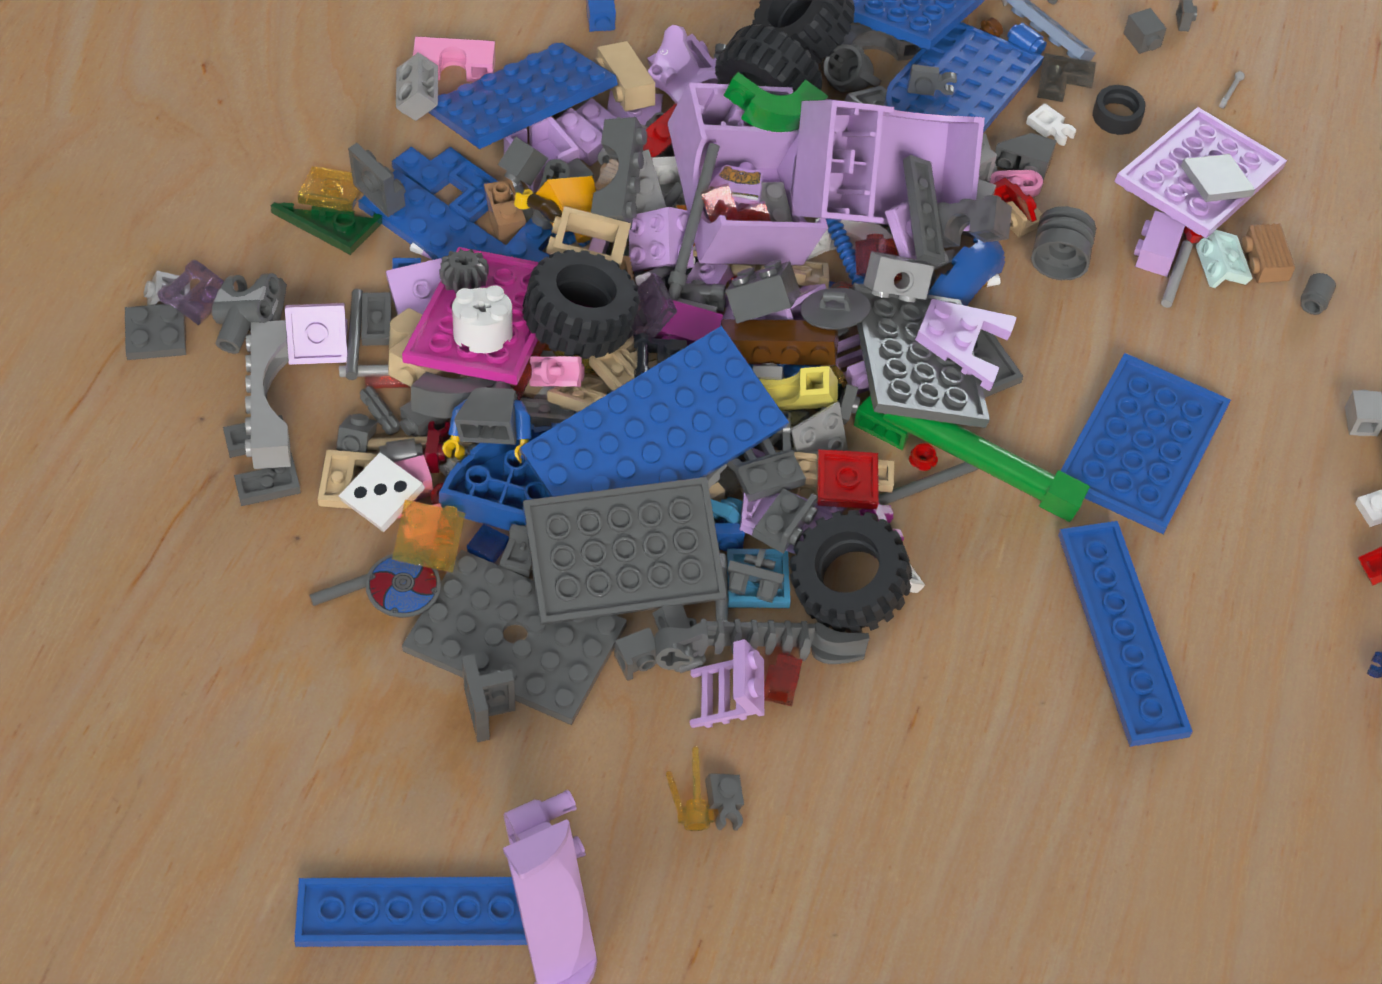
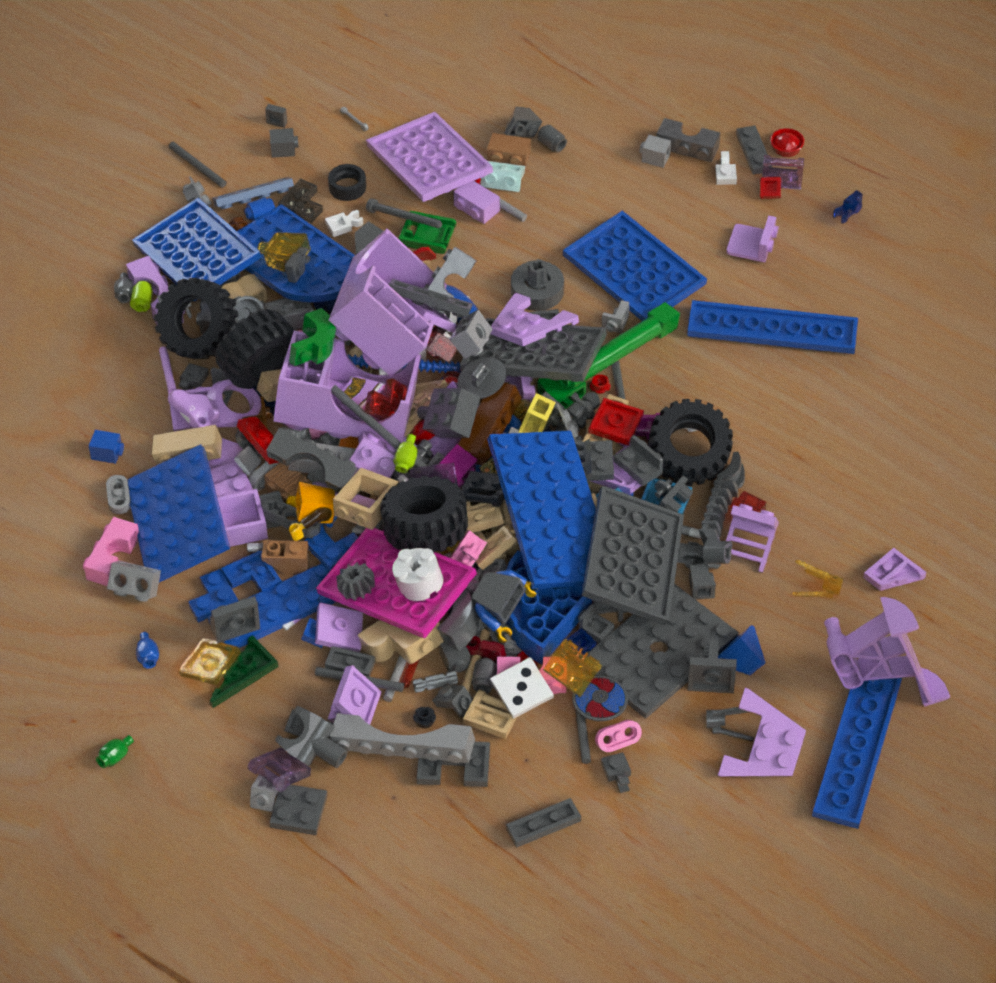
camera: 65 degrees left, 5 degrees down
(182, 143) = (113, 752): none -> green plant
(199, 576) = (543, 822): none -> dark grey plate
(307, 636) = (617, 769): none -> dark grey plate
(326, 419) = (424, 722): none -> black plate
(329, 131) = (147, 651): none -> blue plant
(356, 624) = (617, 735): none -> bright pink plate
(389, 803) = (775, 743): none -> lavender wing
(420, 729) = (716, 719): none -> dark grey plant
(522, 162) = (261, 523): dark grey brick -> none
(538, 40) = (118, 494): none -> light grey plate
(538, 731) = (746, 651): none -> blue slope
(671, 261) = (405, 455): none -> lime plant
(717, 29) = (167, 369): none -> lavender bar
(726, 795) = (825, 563): dark grey plate -> none
(750, 887) = (893, 571): none -> lavender wing
(860, 437) = (584, 408): none -> dark grey hips
(886, 58) = (246, 286): none -> tan brick
(955, 59) = (282, 247): none -> clear yellow torso
(1044, 448) = (616, 321): none -> light grey bracket
(1059, 332) = (538, 276): none -> dark grey piece
(1063, 243) = (466, 240): dark grey wheel -> none
(1095, 145) = (372, 206): none -> dark grey bar
(1098, 208) = (427, 236): none -> green container
(1217, 177) = (445, 147): tile -> none
(1268, 568) = (753, 242): none -> lavender bracket
(1318, 249) = (523, 123): none -> dark grey slope

